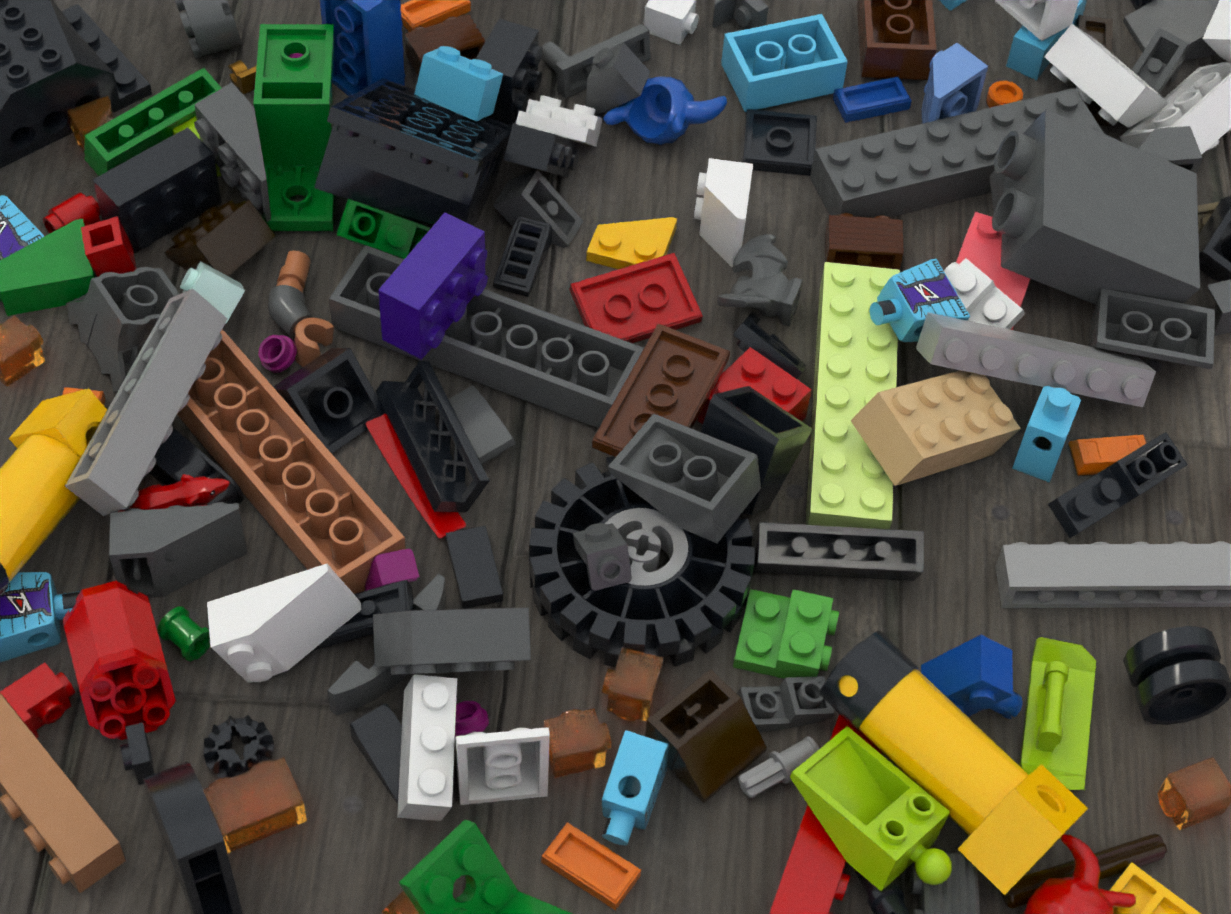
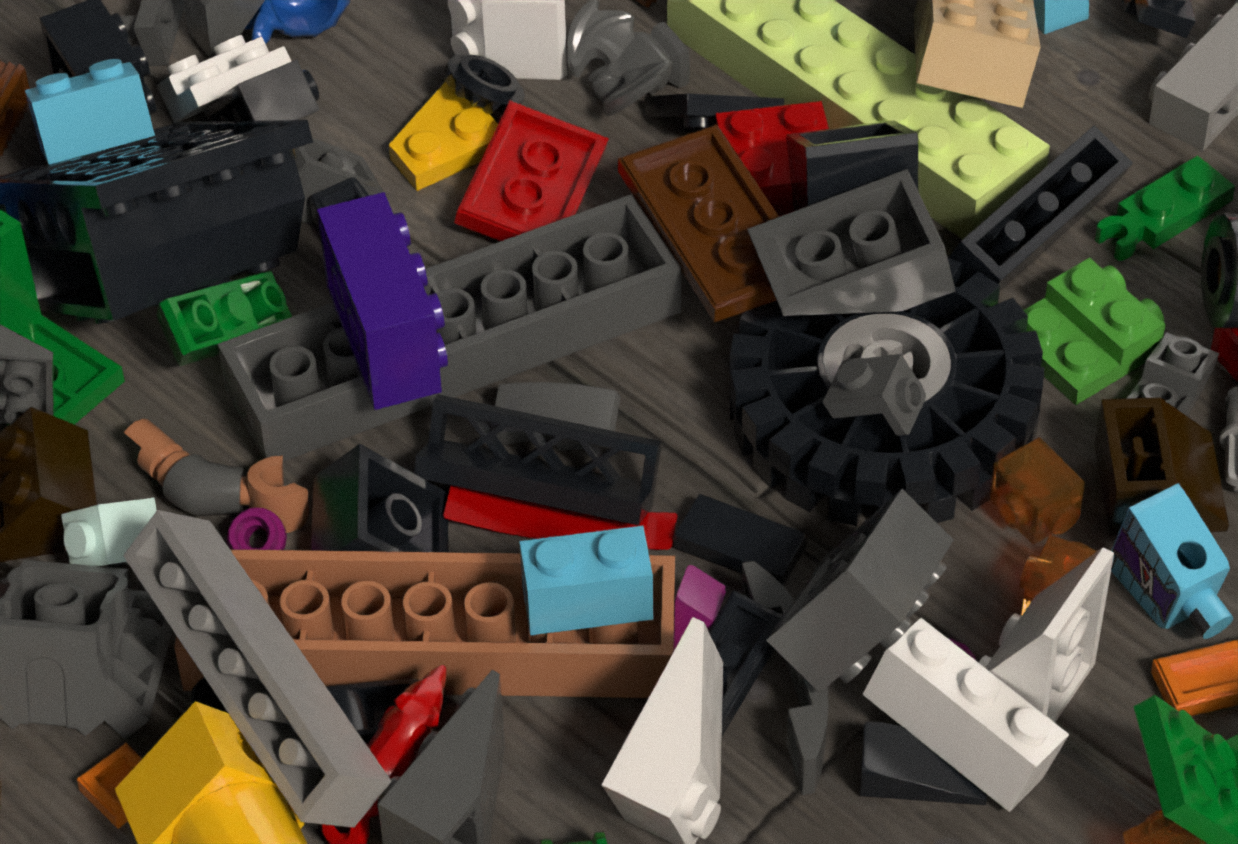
camera: 45 degrees left, 5 degrees down
(334, 504) = (587, 580): none -> medium azure brick
(693, 236) = (483, 82): none -> black gear
(928, 615) = (1166, 207): none -> green plate

